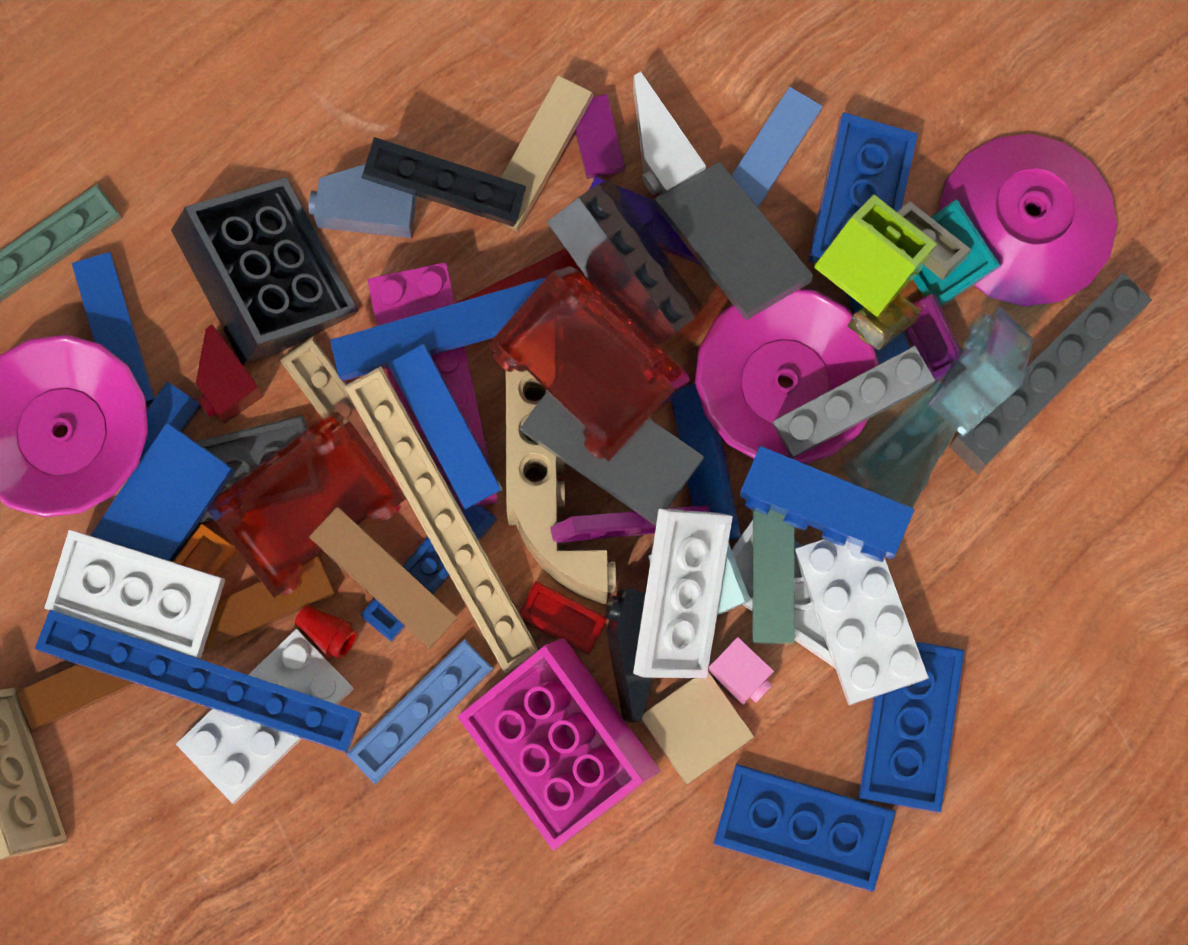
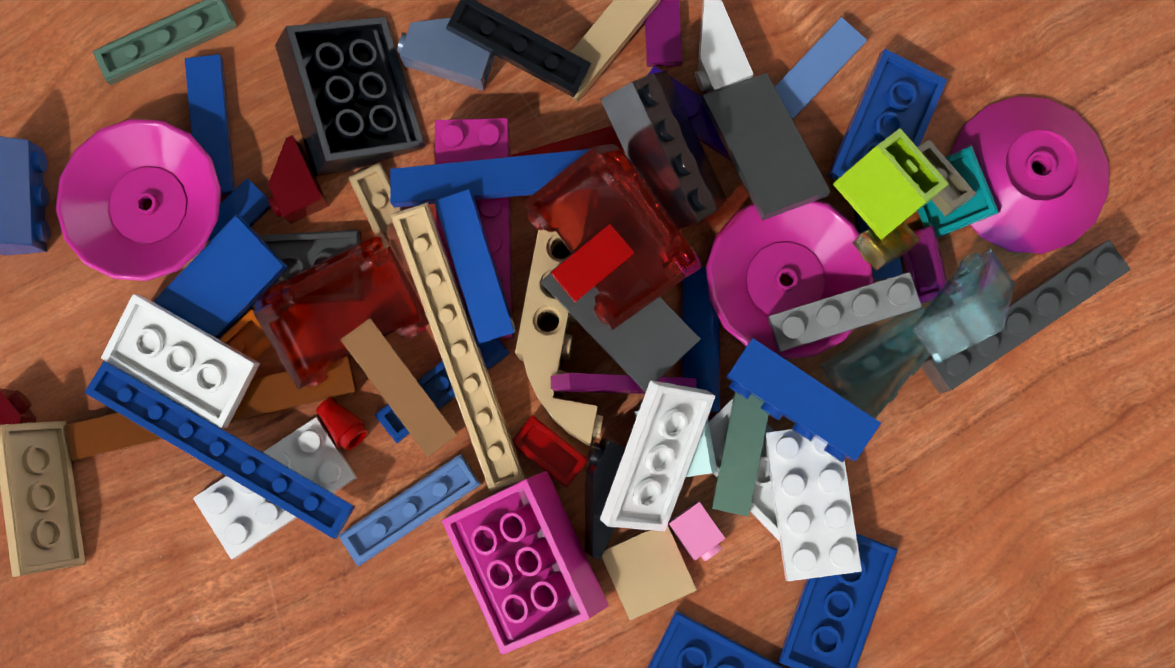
camera: 15 degrees right, 5 degrees up
(572, 396) = (592, 263): none -> red tile

